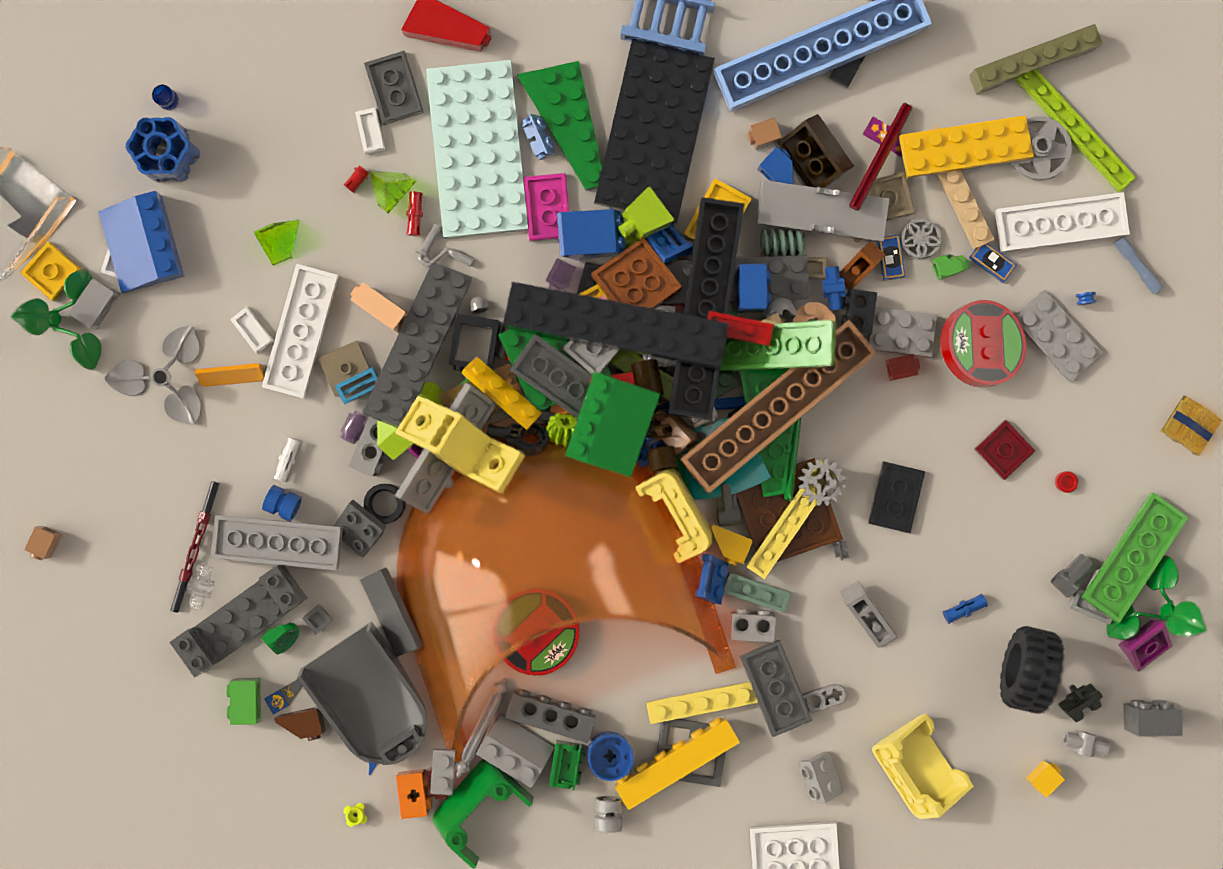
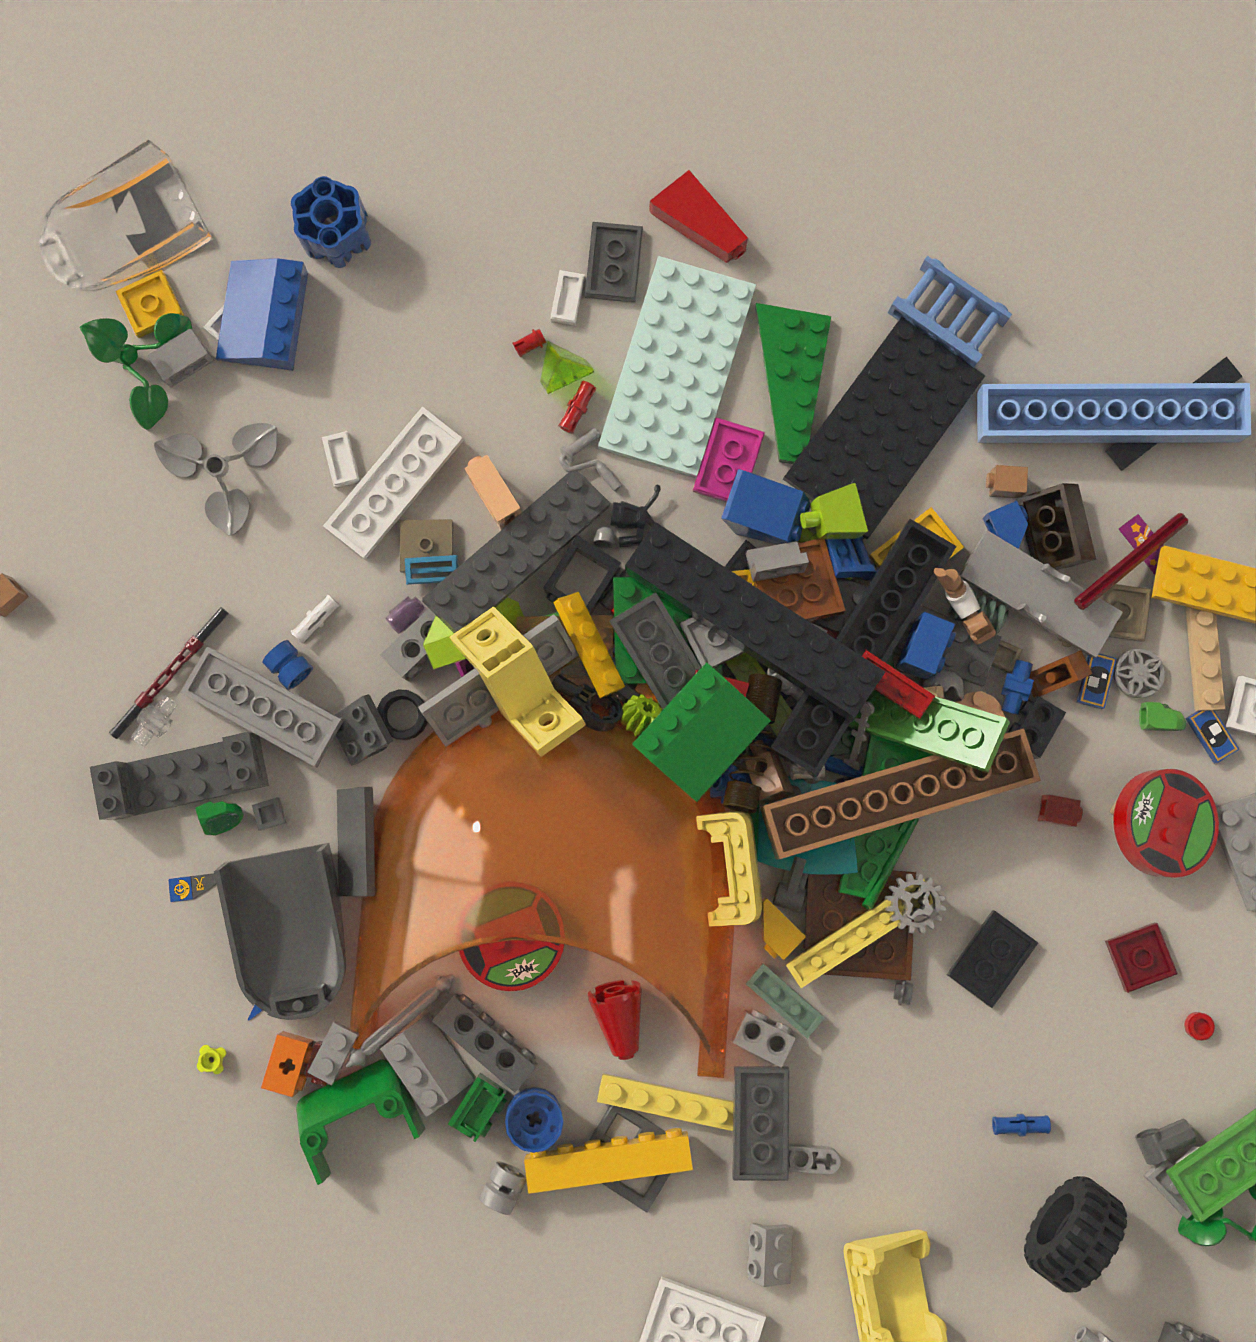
camera: 25 degrees right, 5 degrees down
(161, 94) = (357, 163): clear blue wheel -> none
(230, 374) = (294, 498): light orange slope -> none
(244, 701) = (144, 872): bright green brick -> none
(278, 240) = (413, 372): clear neon green slope -> none
(303, 723) = (199, 926): reddish brown slope -> none
(492, 280) = (632, 517): none -> black piece
(543, 144) = (751, 368): medium blue hinge -> none
(560, 275) = (713, 541): clear purple brick -> none
(614, 271) = (776, 561): none -> light grey panel
(639, 654) = (618, 1015): none -> red cone
(712, 579) = (740, 962): blue plate -> none
(728, 354) = (866, 711): none -> light grey piece
(770, 244) = (966, 605): none -> medium nougat piece
(867, 614) = (904, 1082): light grey slope -> none
(903, 332) = (1078, 771): light grey plate -> none
(1079, 700) = (1114, 1295): pearl dark grey hips -> none
(1147, 644) = (1222, 1263): magenta slope -> none

